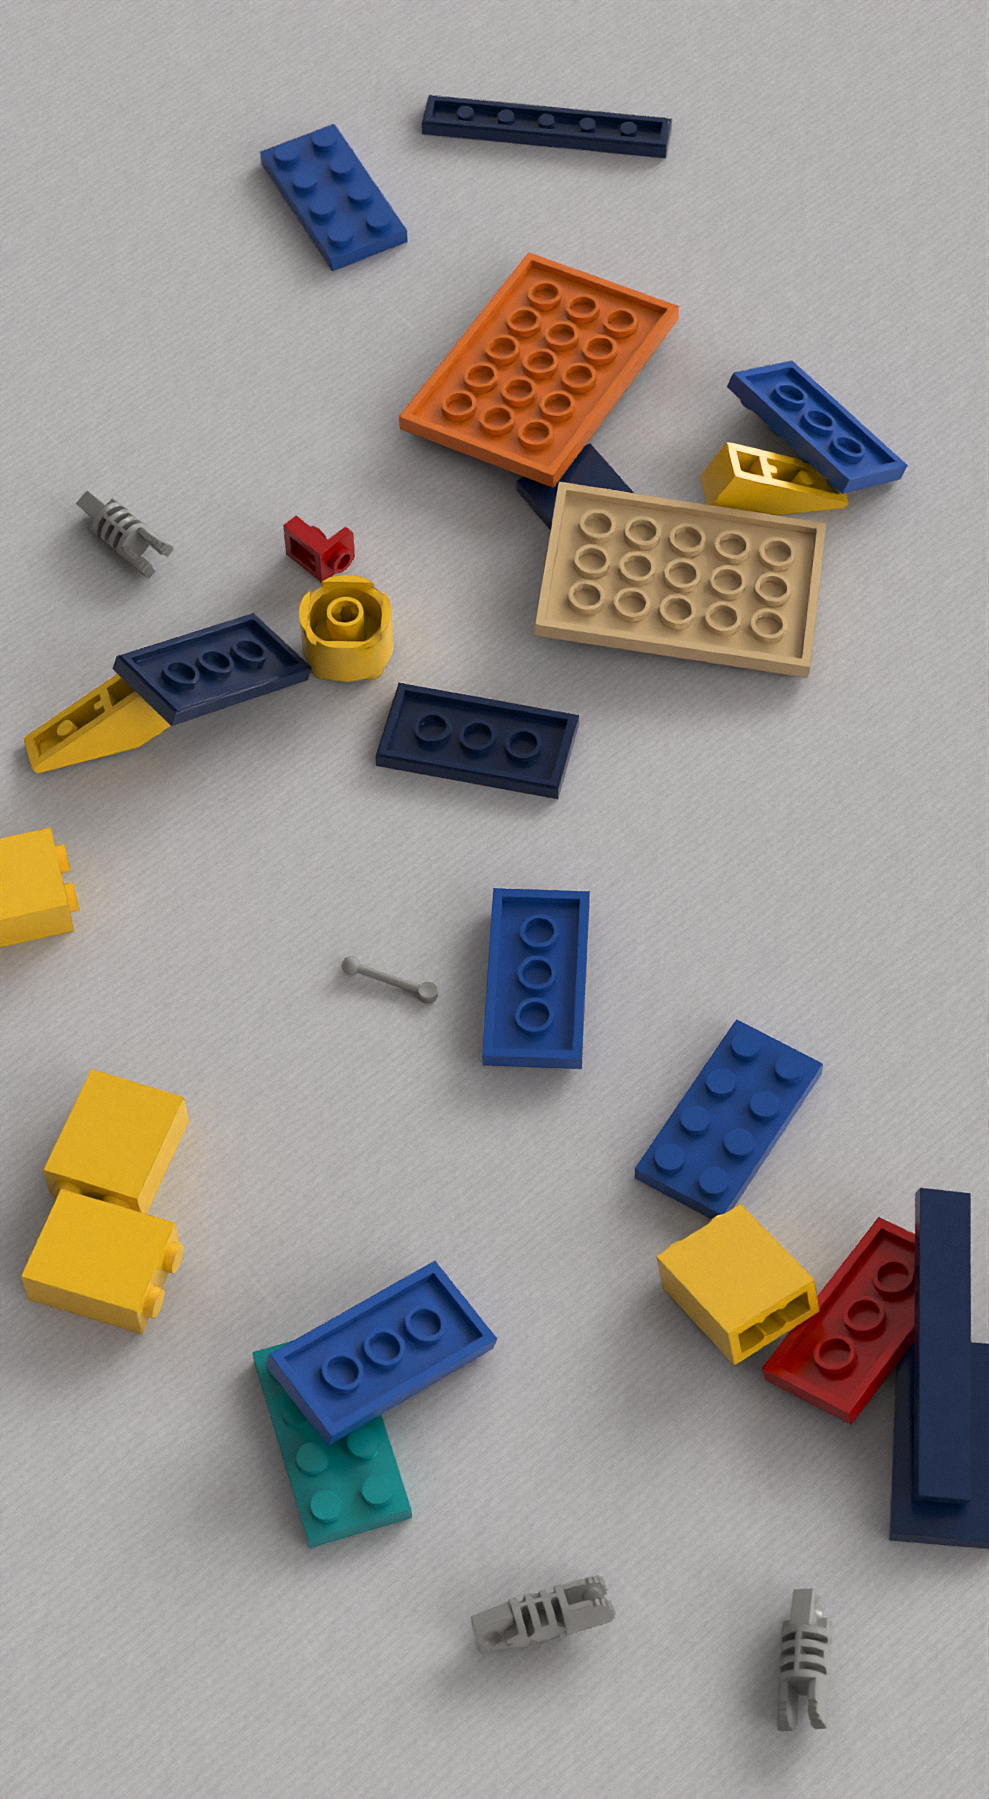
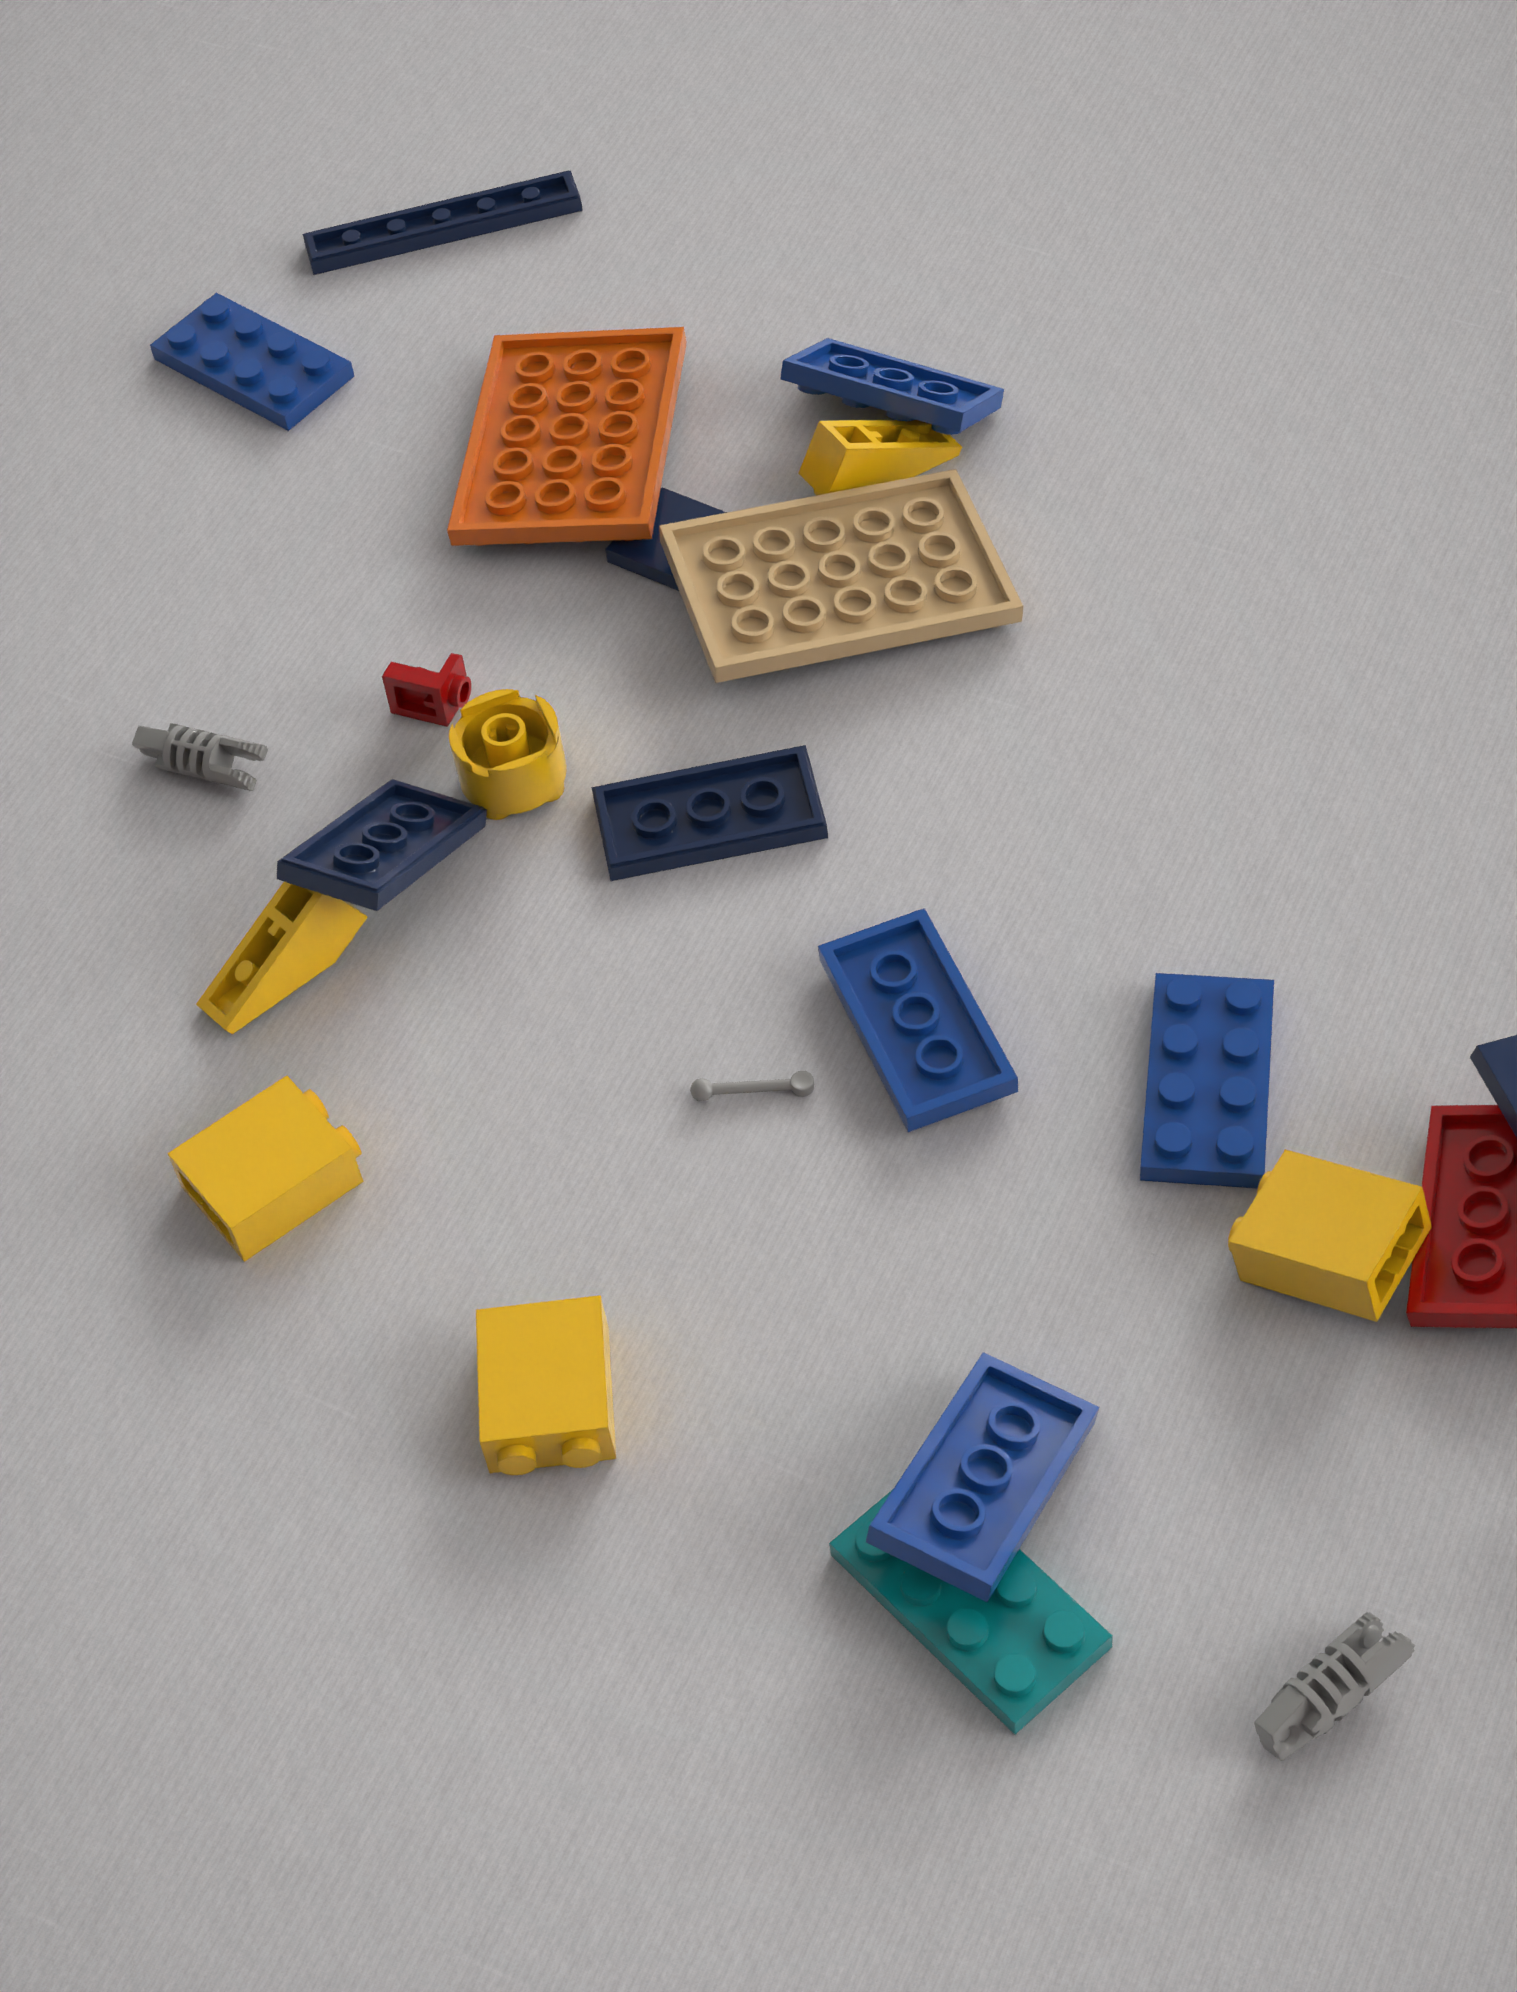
camera: 20 degrees left, 5 degrees down
(102, 1261) = (600, 1518): yellow brick -> none

